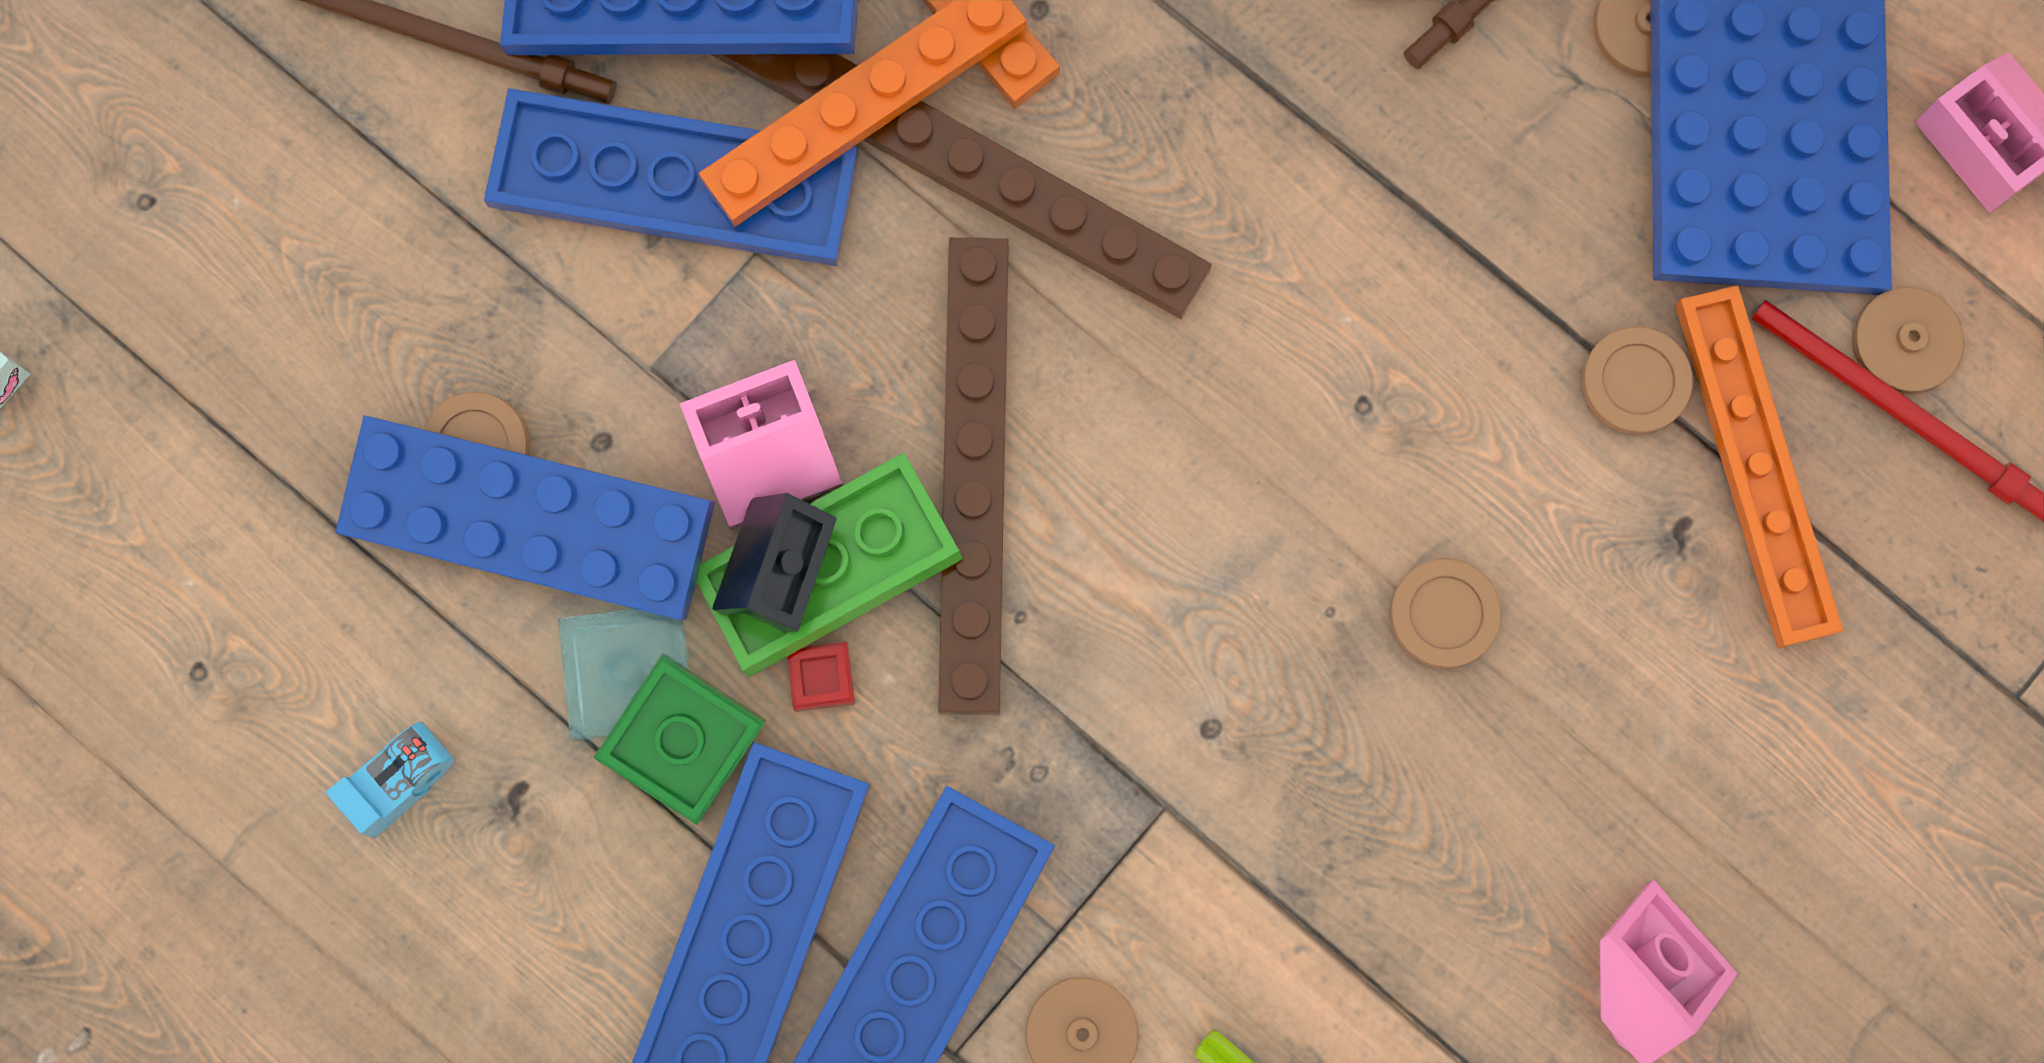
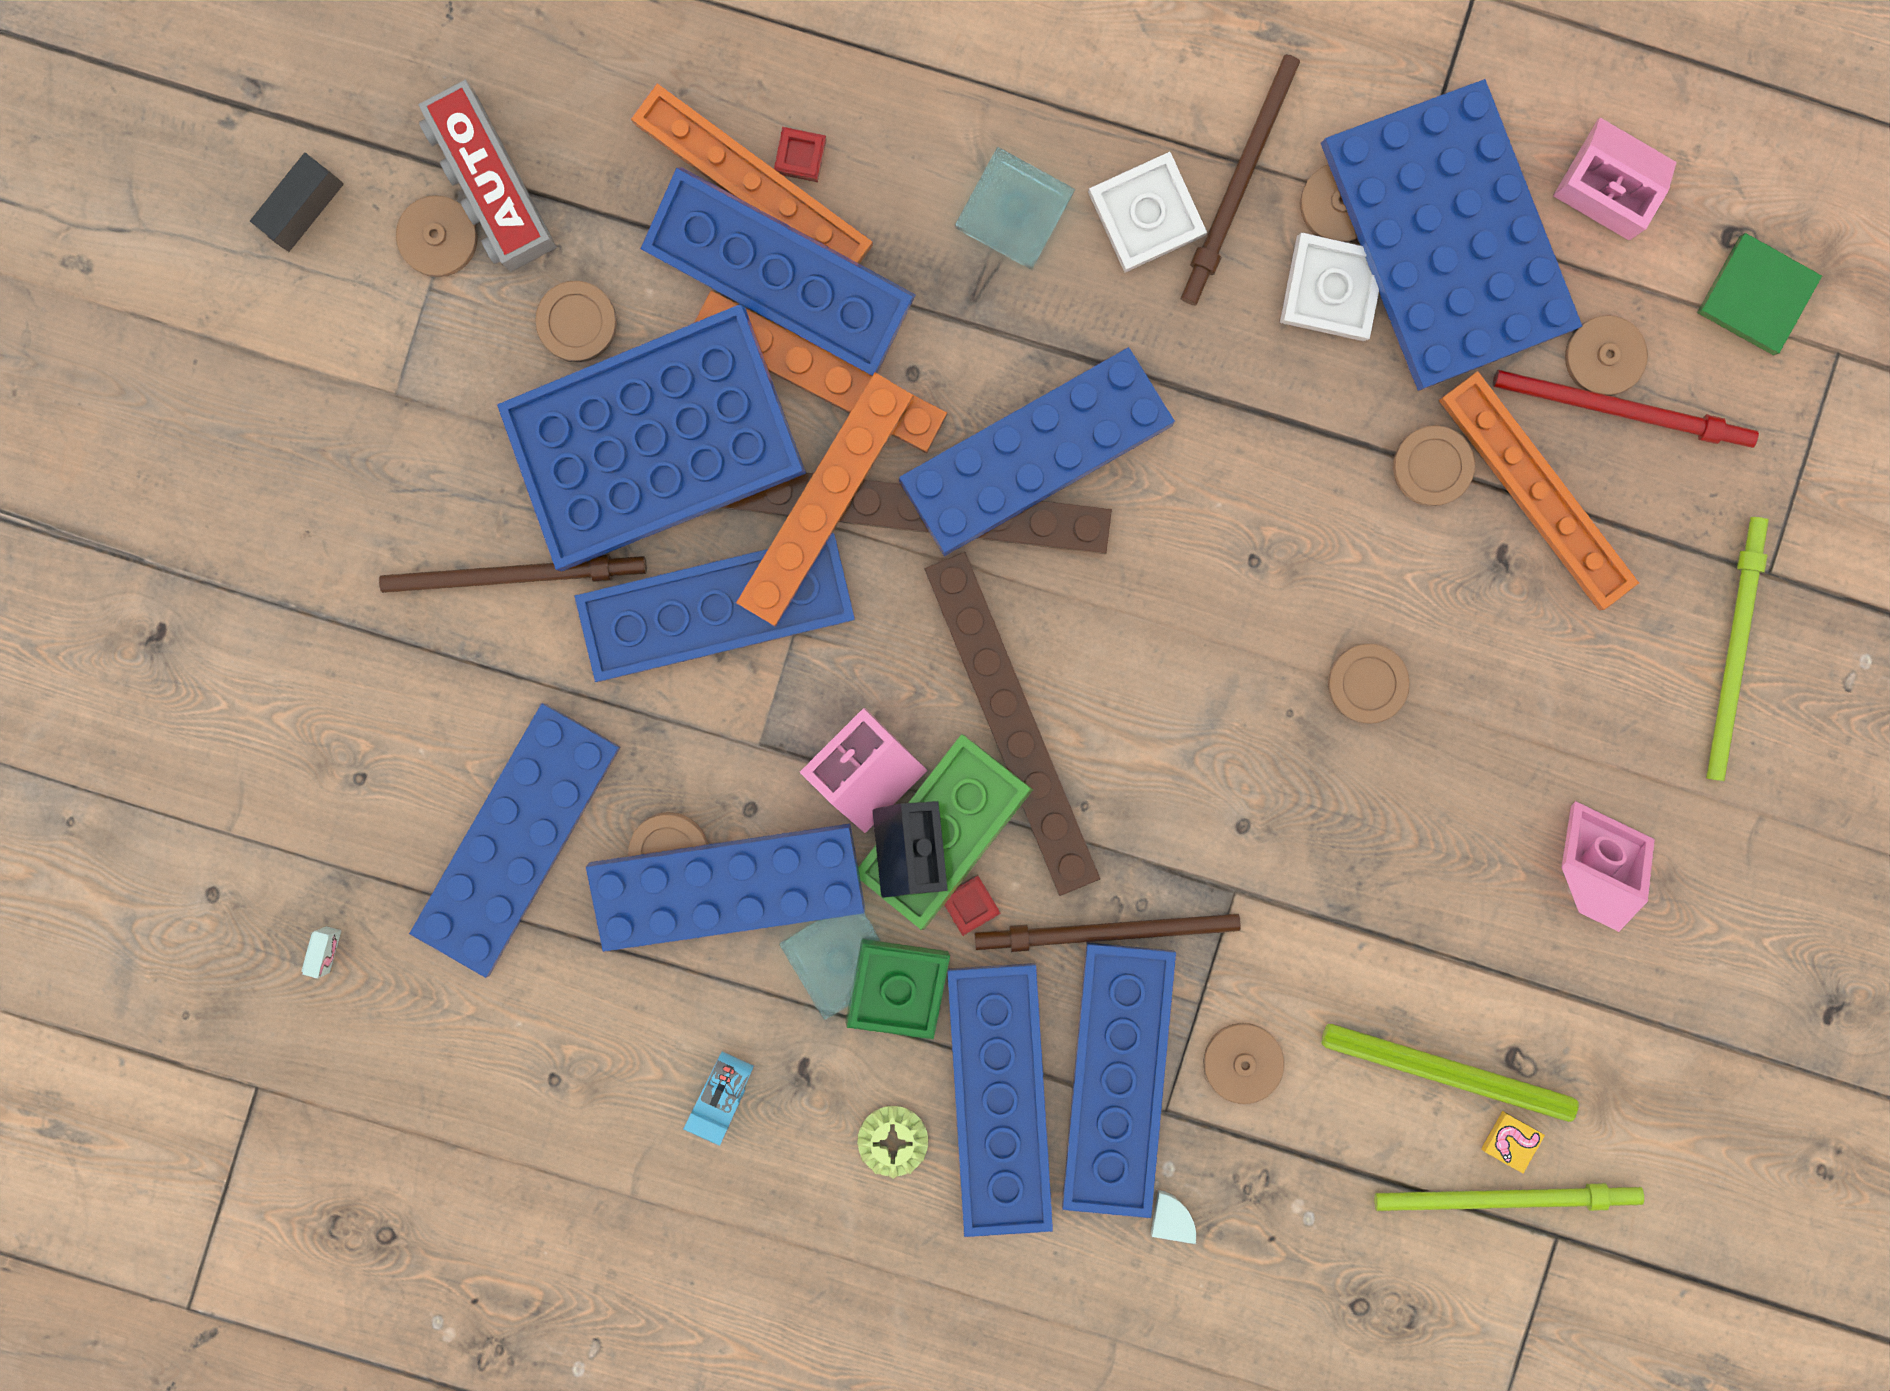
camera: 20 degrees left, 10 degrees up
(293, 354) = (514, 840): none -> blue plate
(612, 924) = (908, 1128): none -> yellowish green gear
(865, 745) = (1020, 938): none -> reddish brown bar
(1148, 154) = (1036, 451): none -> blue plate
(1593, 114) = (1330, 288): none -> white plate
(1997, 673) = (1751, 564): none -> lime bar

